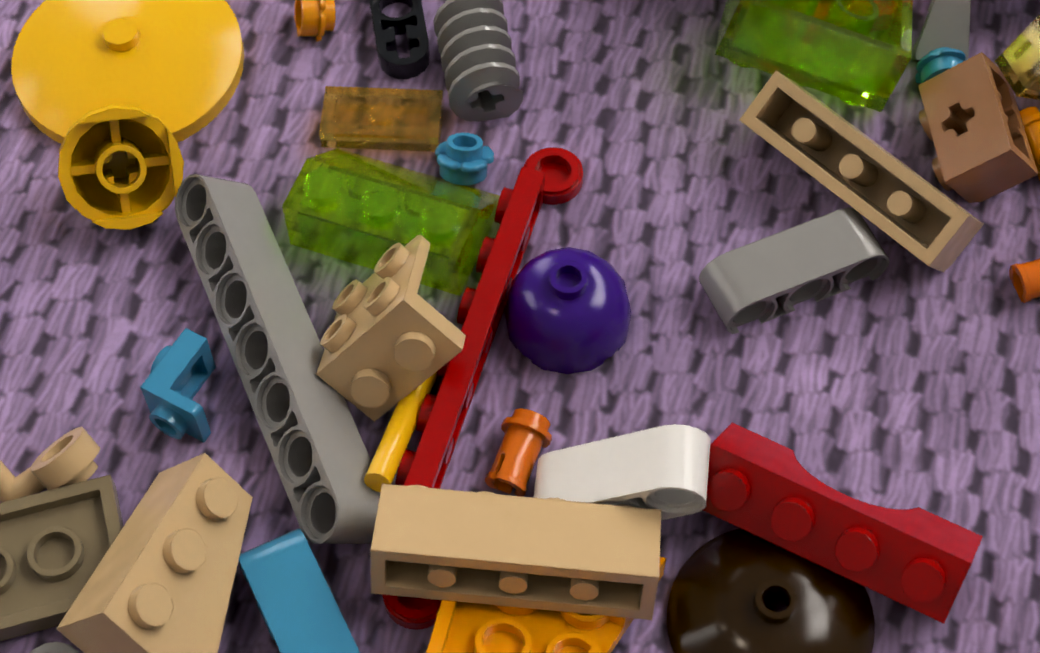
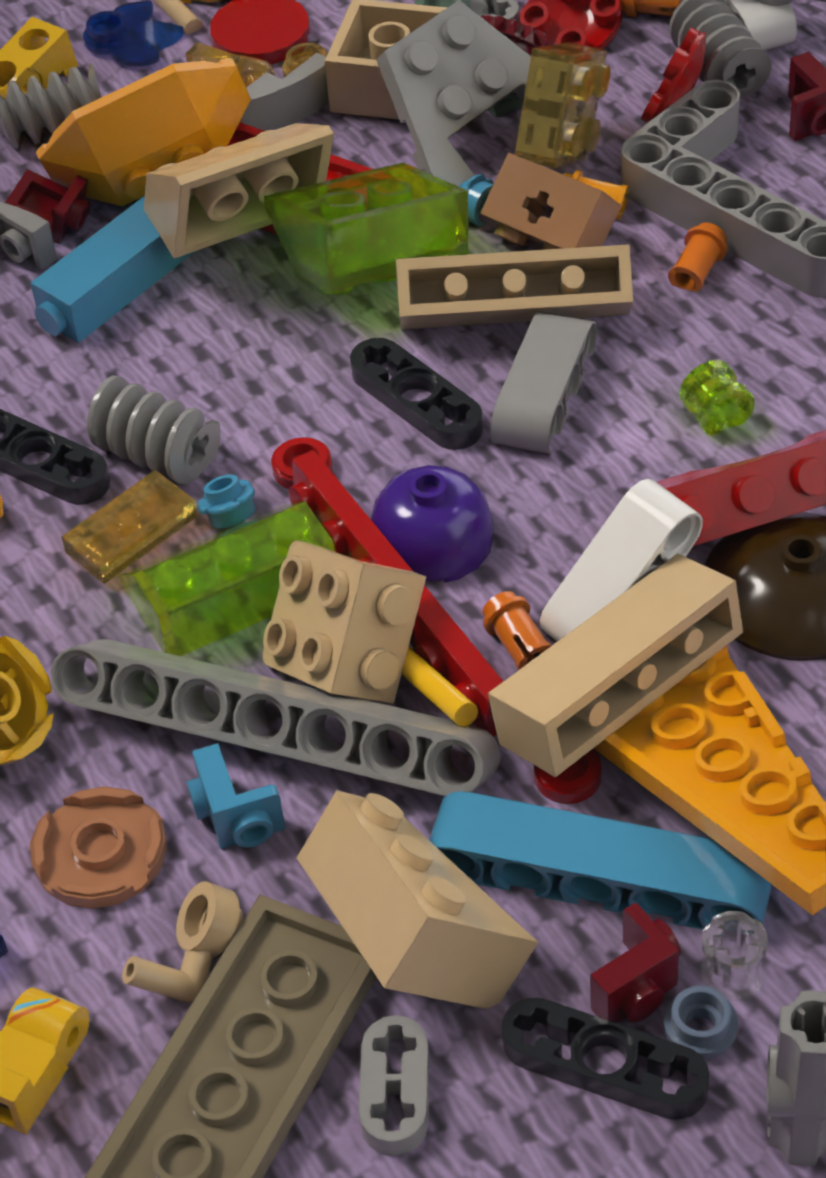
camera: 45 degrees left, 10 degrees down
(93, 354) = (103, 867): none -> nougat tile
(710, 175) = (411, 374): none -> black beam
(903, 406) = (715, 396): none -> clear neon green wheel

